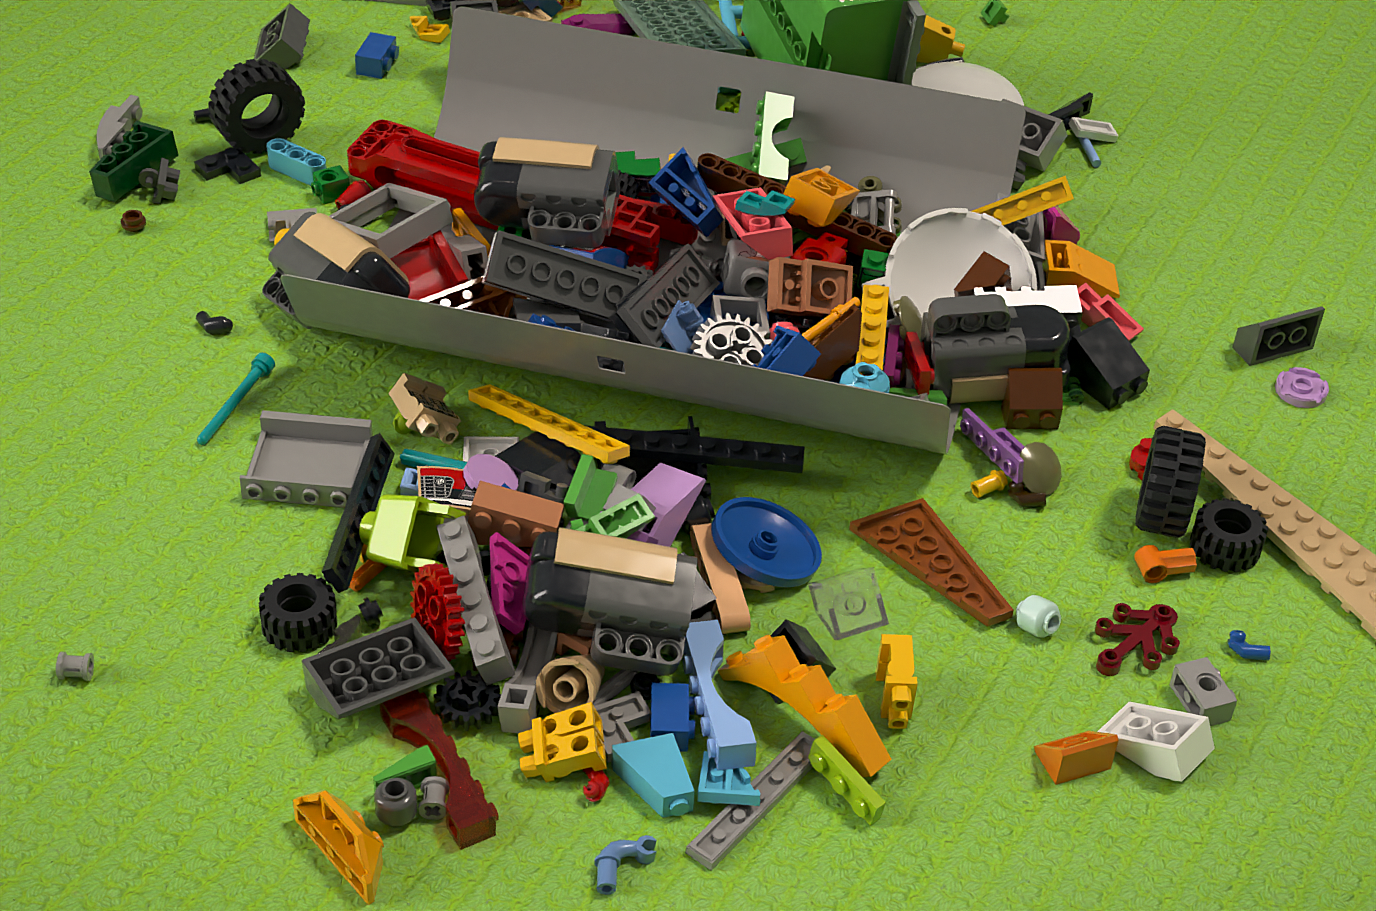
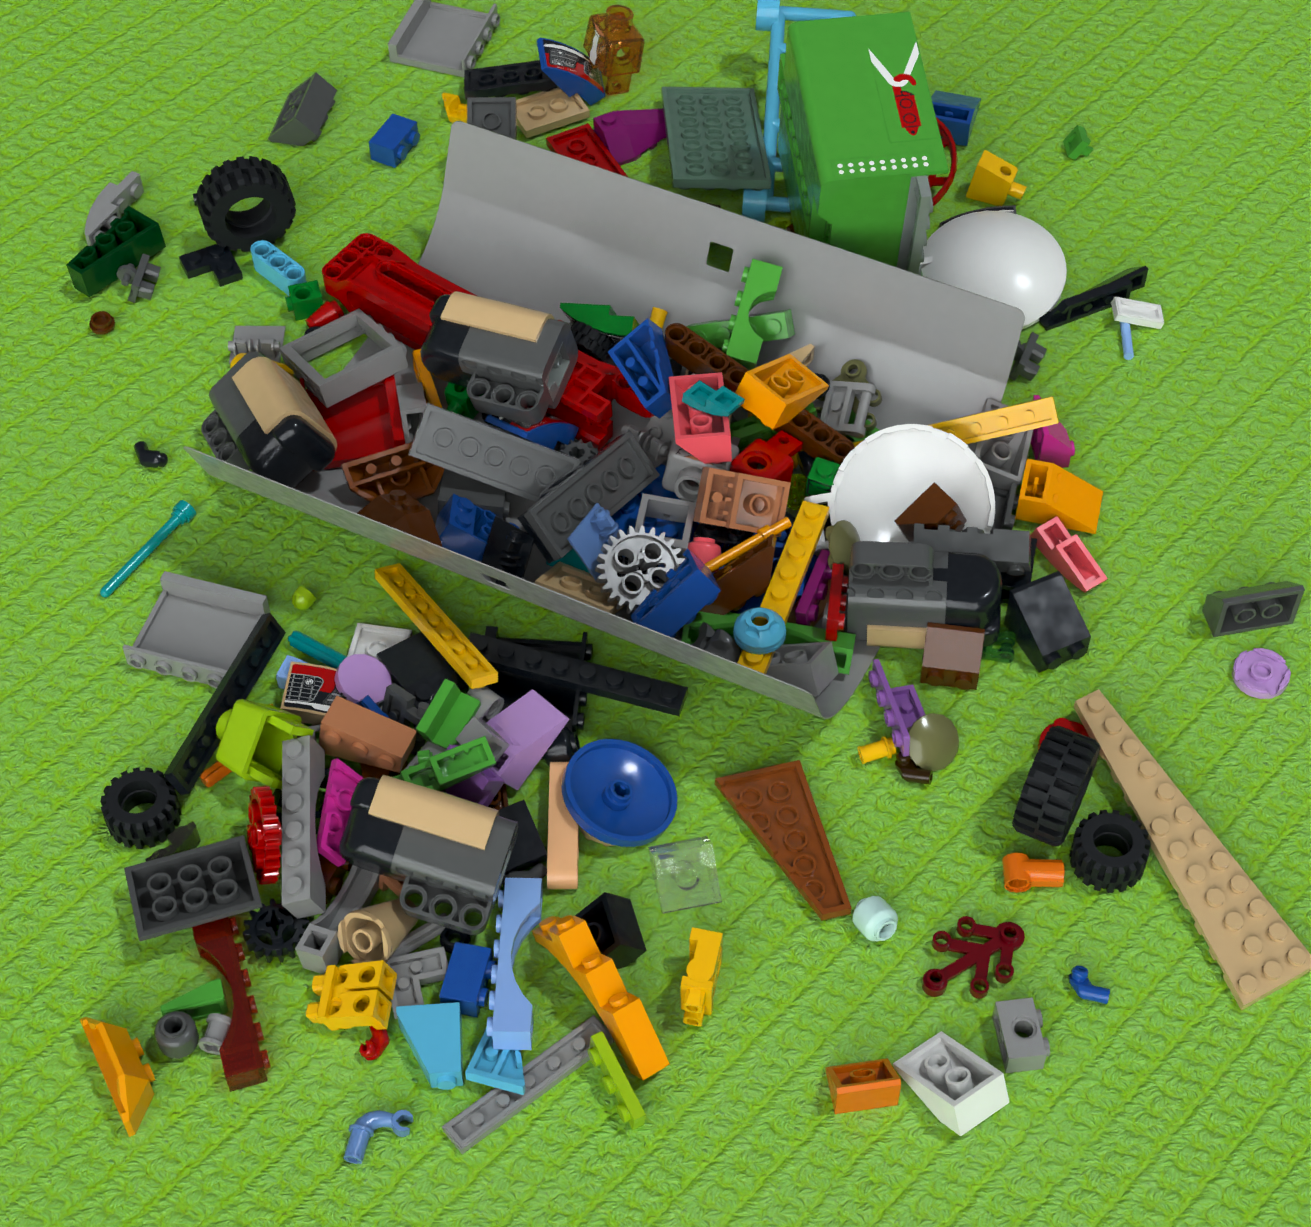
camera: 15 degrees right, 10 degrees up
(370, 612) = (212, 815): black plate -> none
(424, 408) = (323, 589): tan hips -> none
(1040, 138) = (1054, 314): light grey slope -> none

